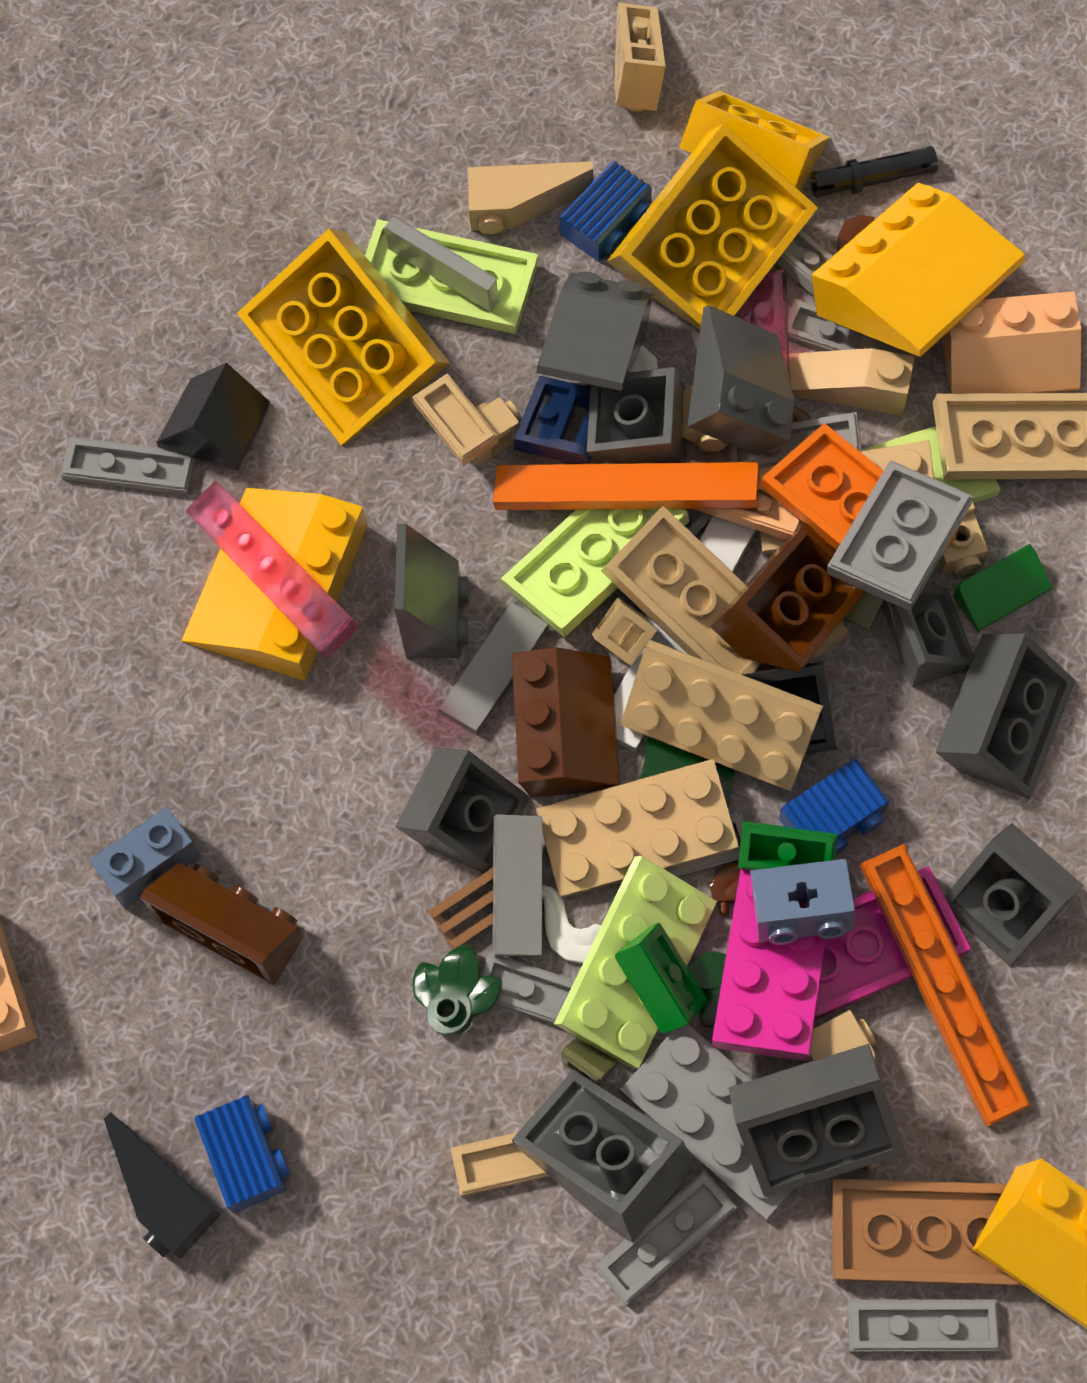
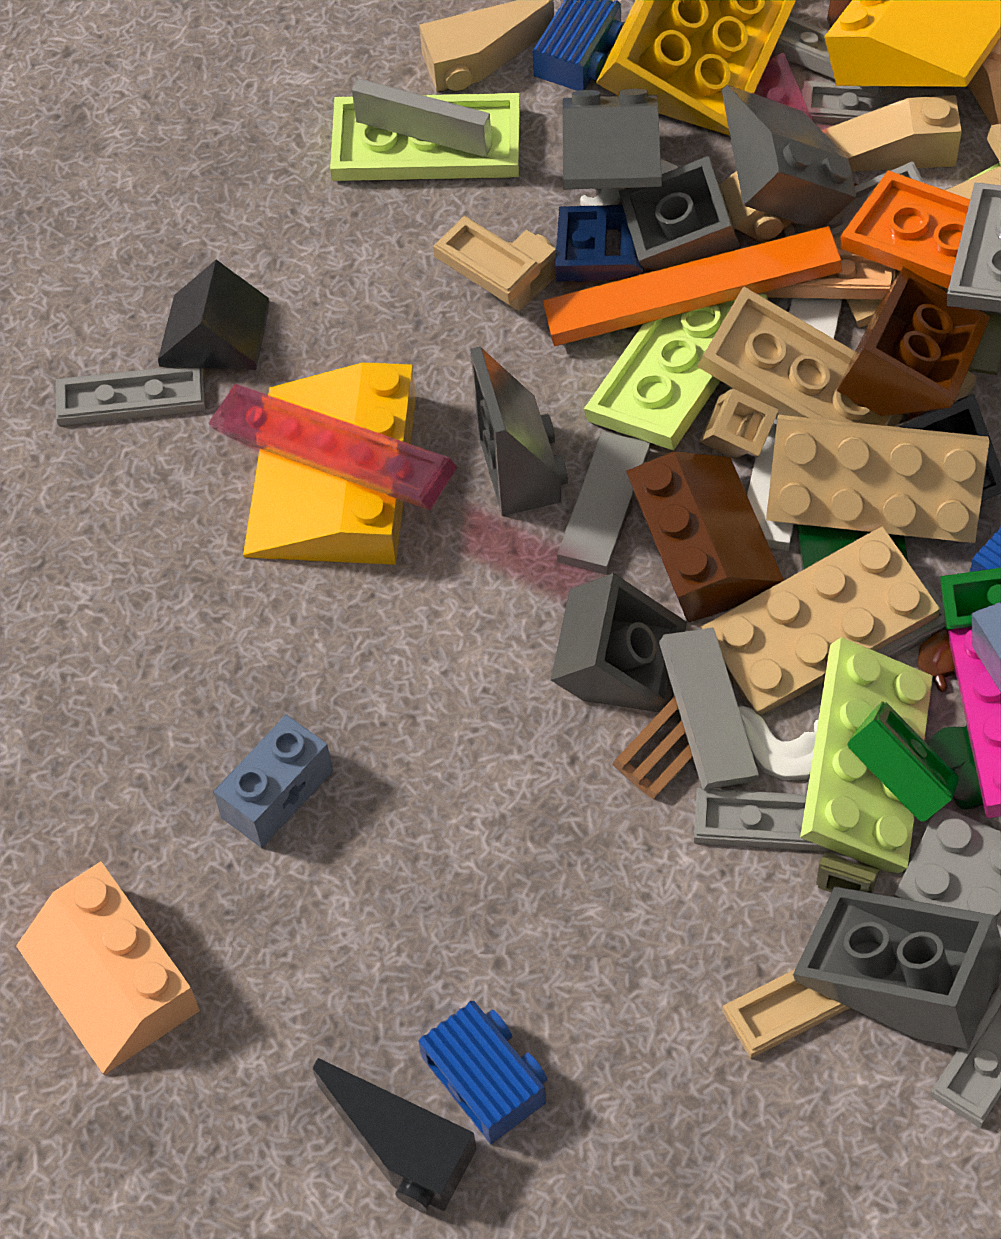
camera: 15 degrees left, 10 degrees down
(224, 920) = (385, 826): reddish brown slope -> none
(342, 336) = (334, 210): yellow slope -> none
(458, 984) = (671, 830): dark green plate -> none

